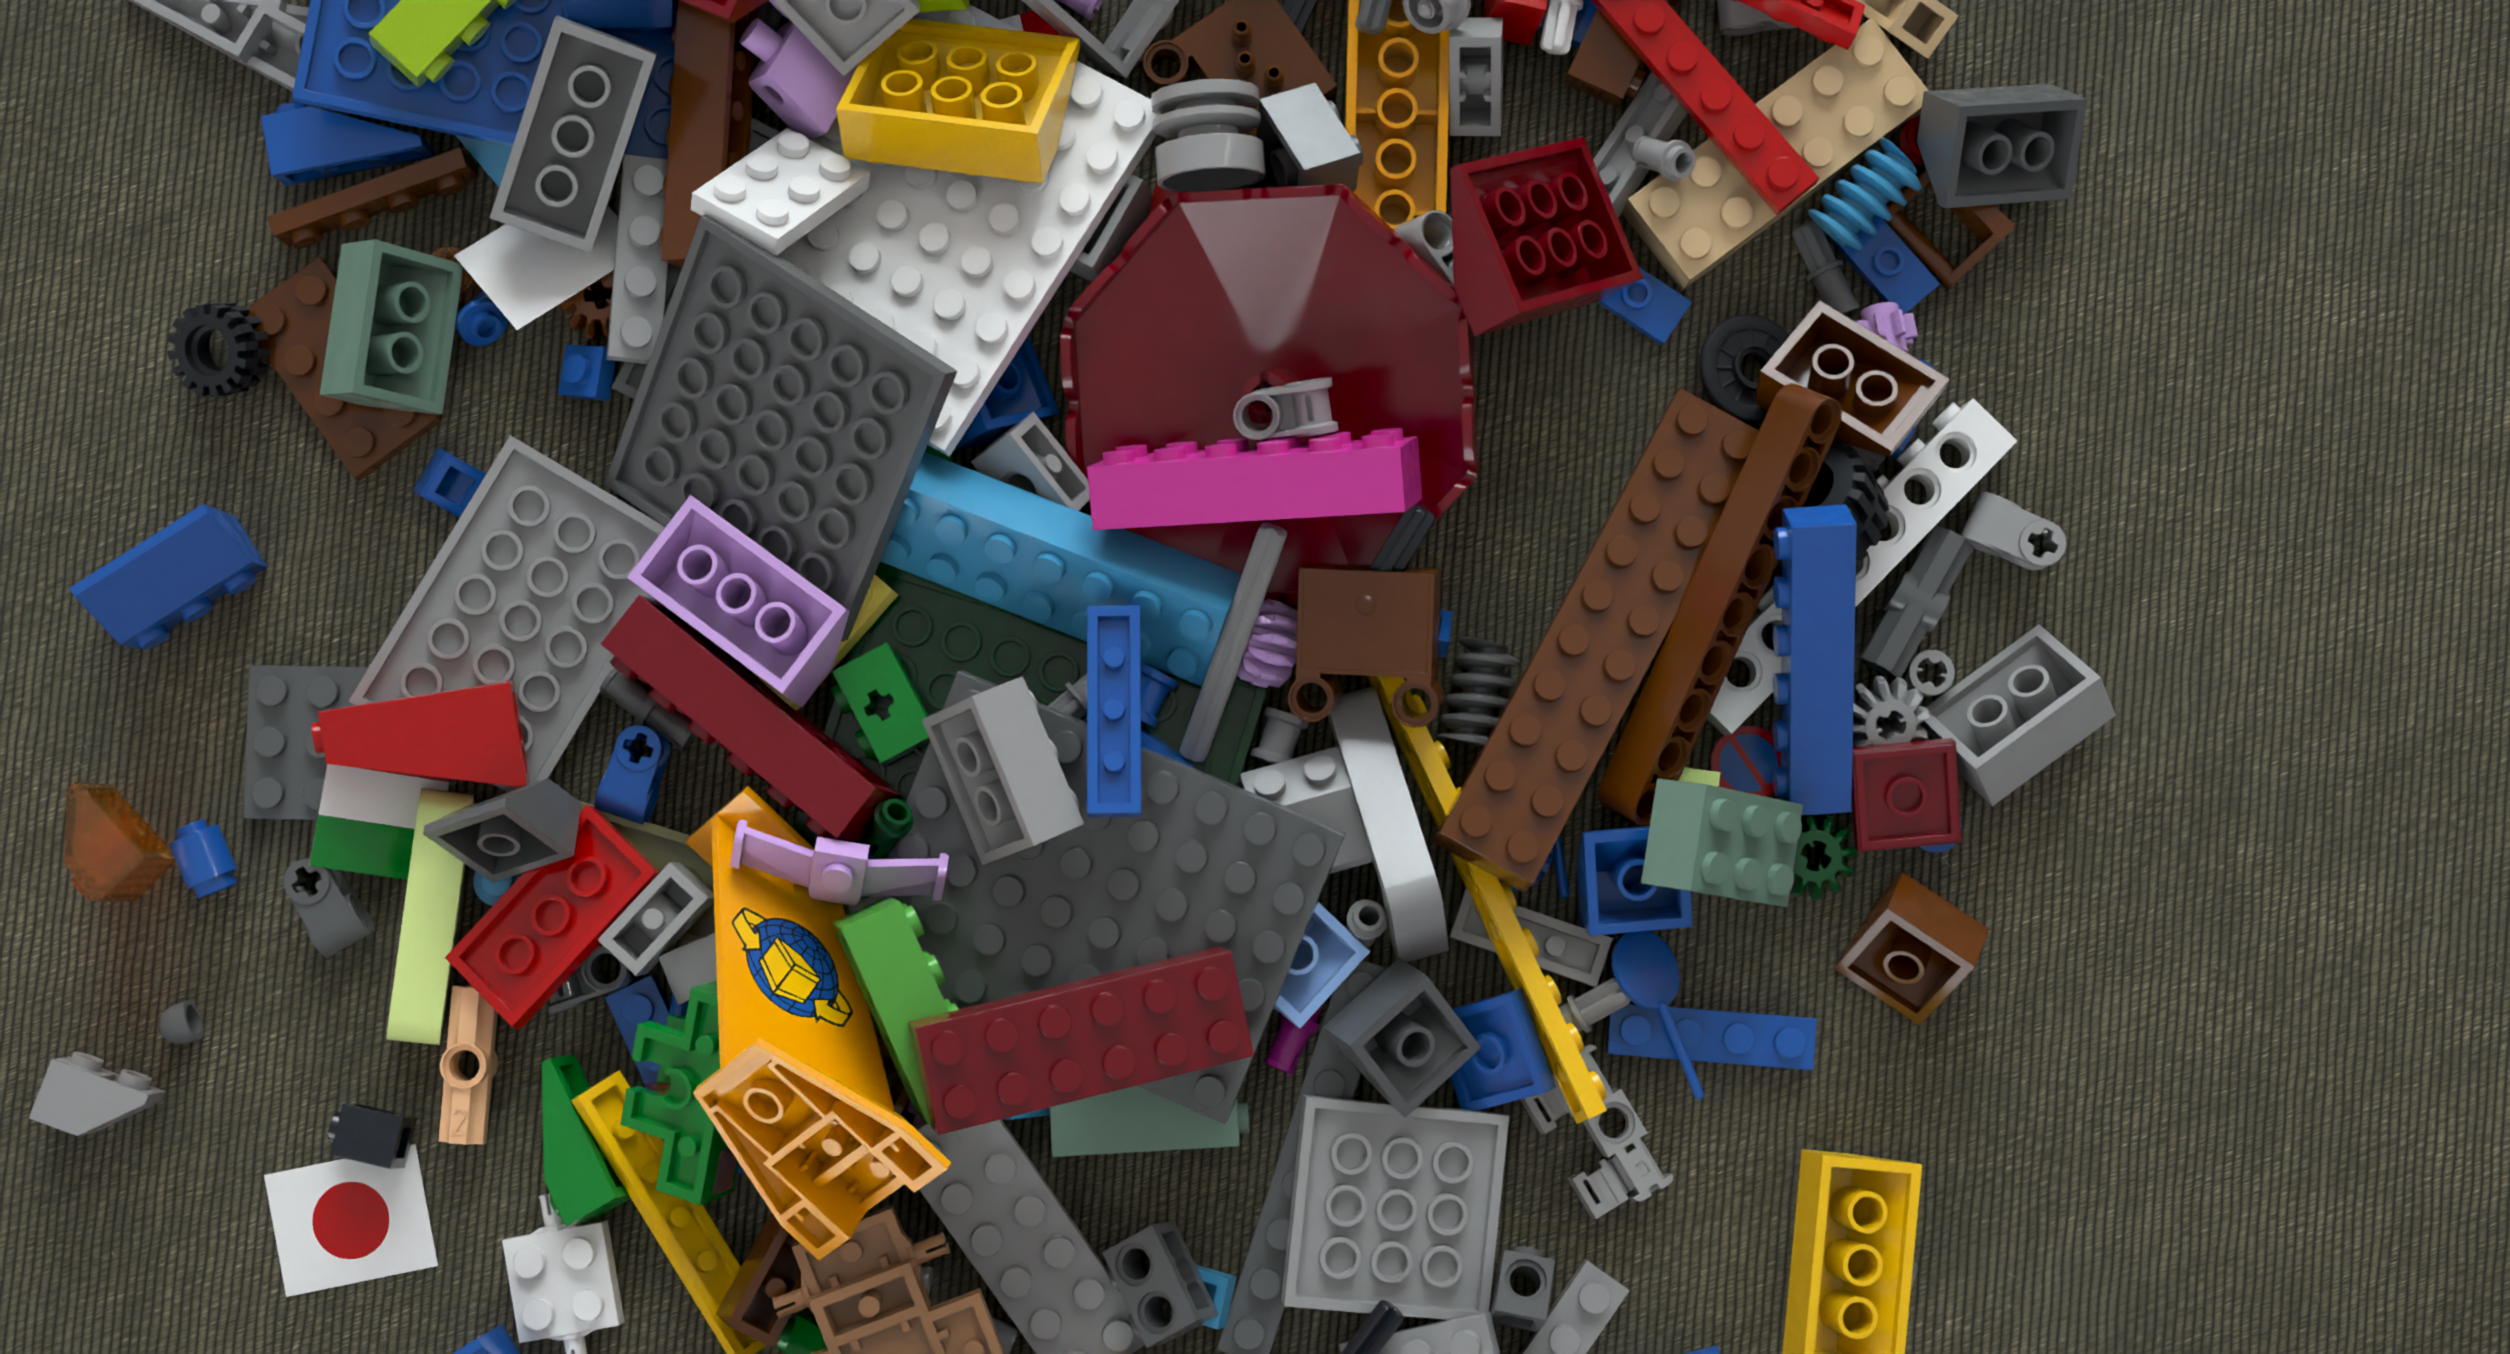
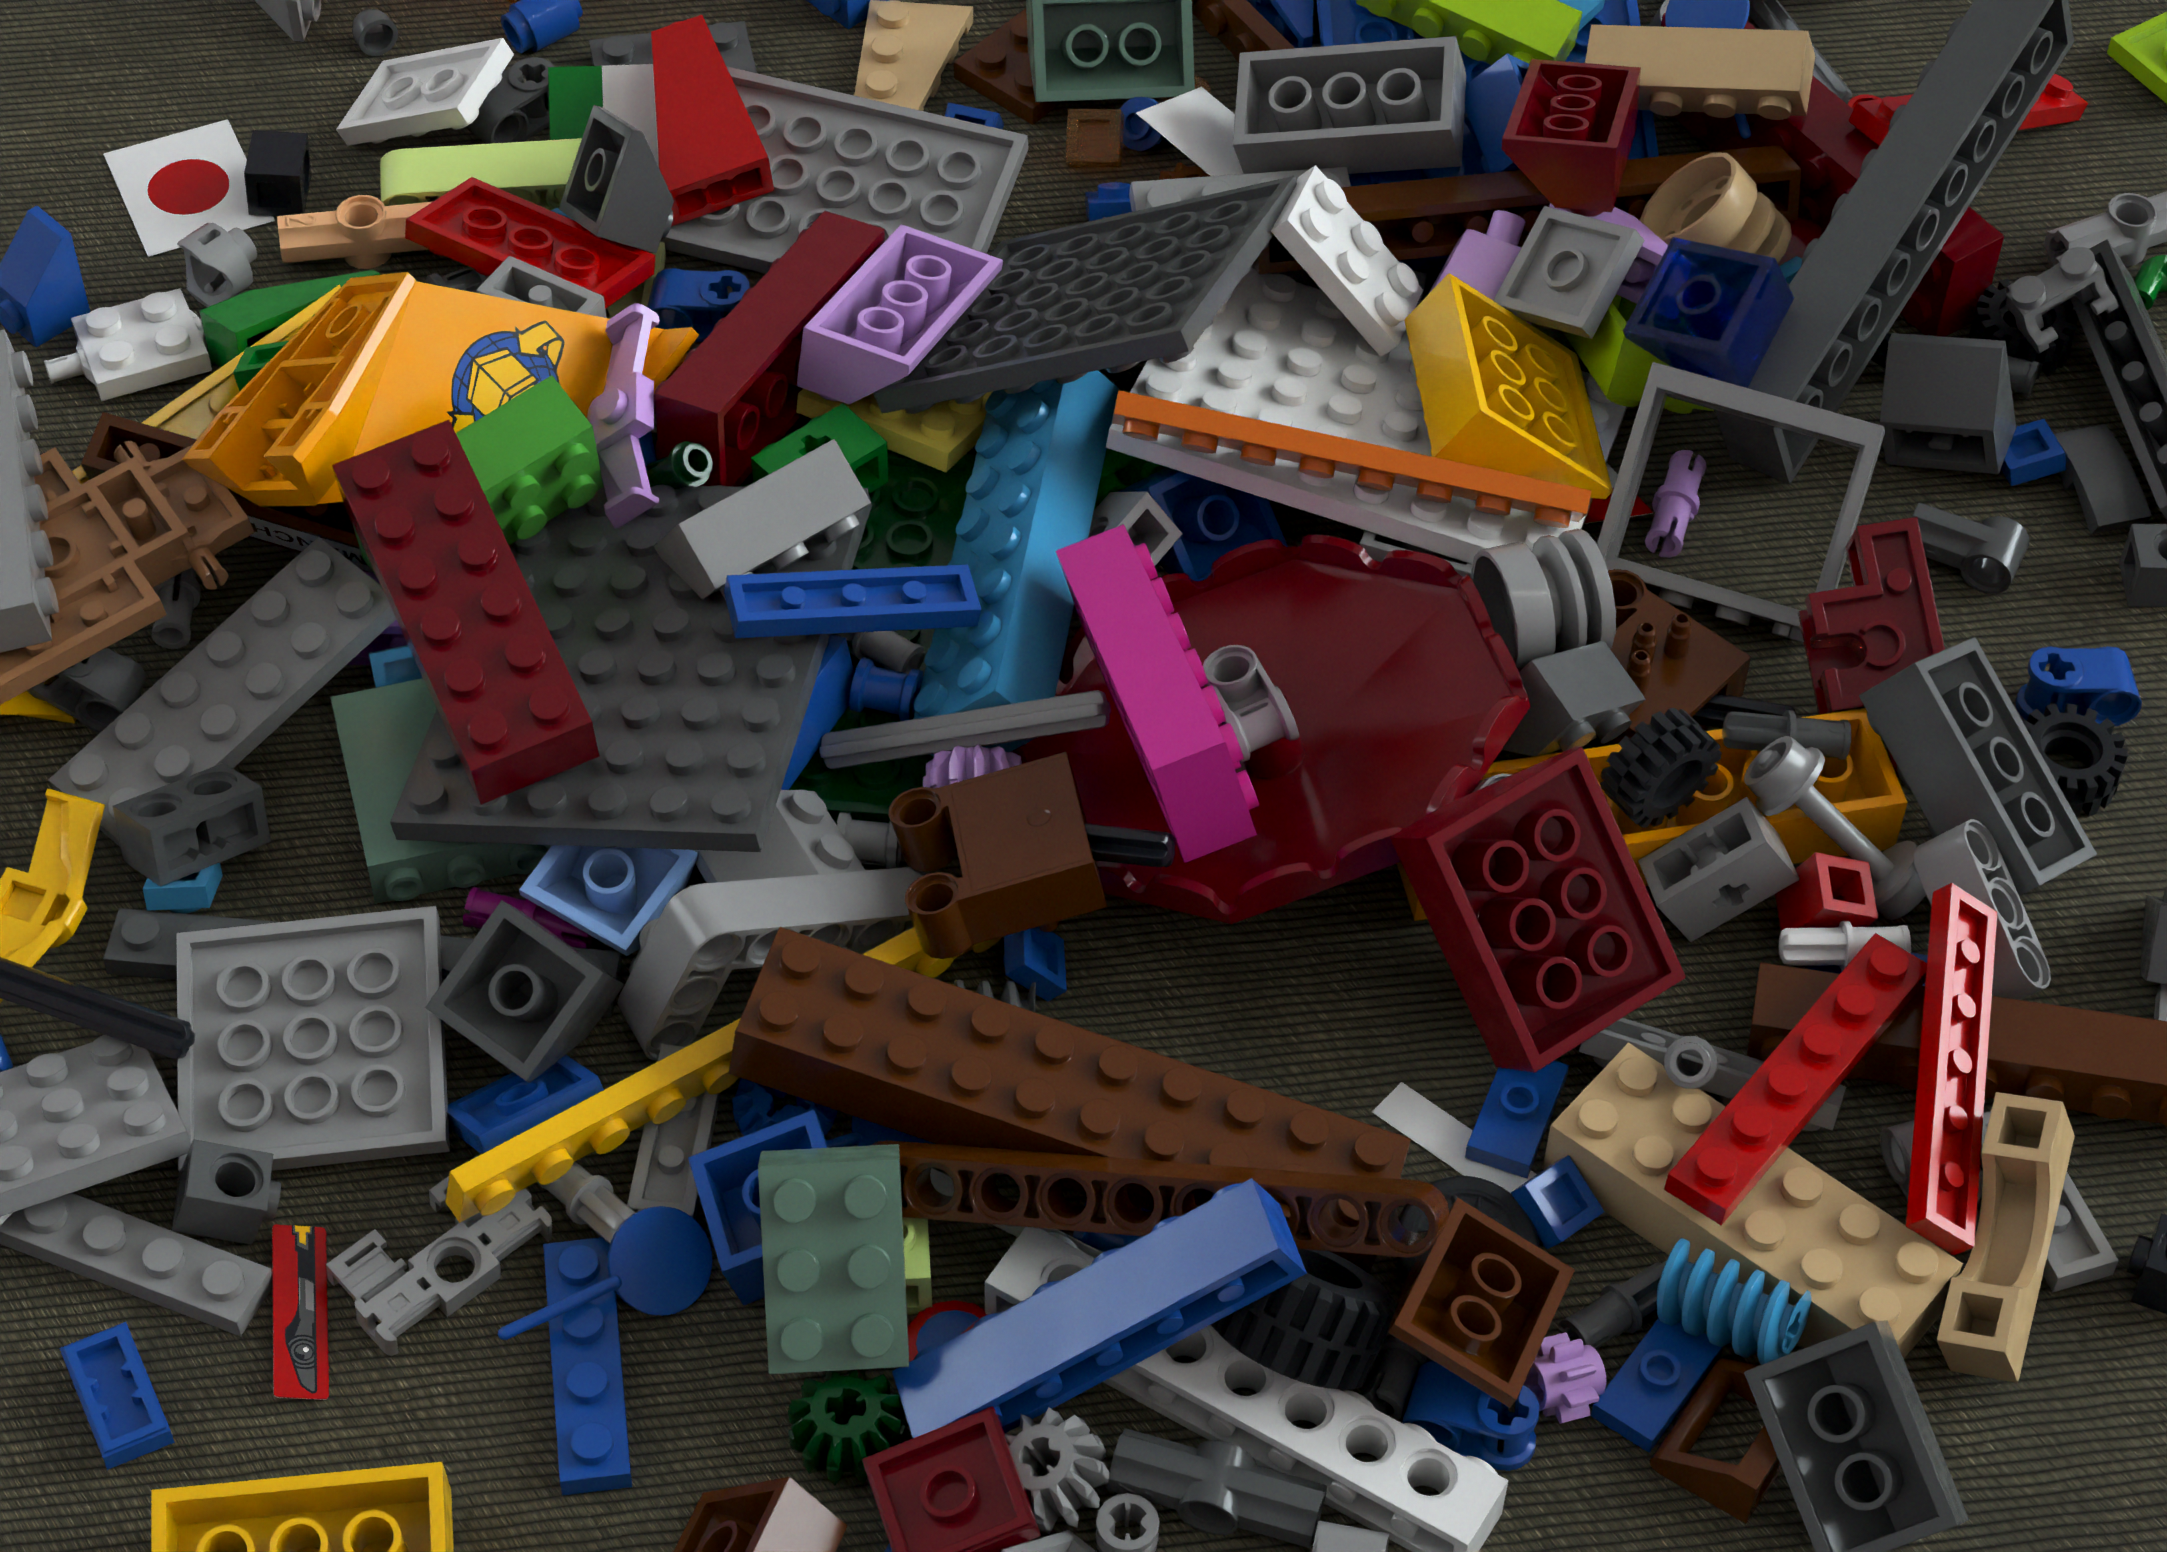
camera: 75 degrees right, 35 degrees down
(307, 985) = (425, 92): none -> white plate
(336, 525) = (908, 50): none -> tan wing
(487, 1203) = (217, 258): none -> light grey piece
(494, 369) = (1094, 138): none -> clear orange plate
(1031, 262) = (1374, 464): none -> orange plate
(1414, 96) = (1660, 767): none -> black tyre
(1619, 1242) = (300, 1312): none -> red sticker
(1642, 354) = (1439, 1135): none -> white sticker
(1731, 291) = (1558, 1202): none -> blue plate

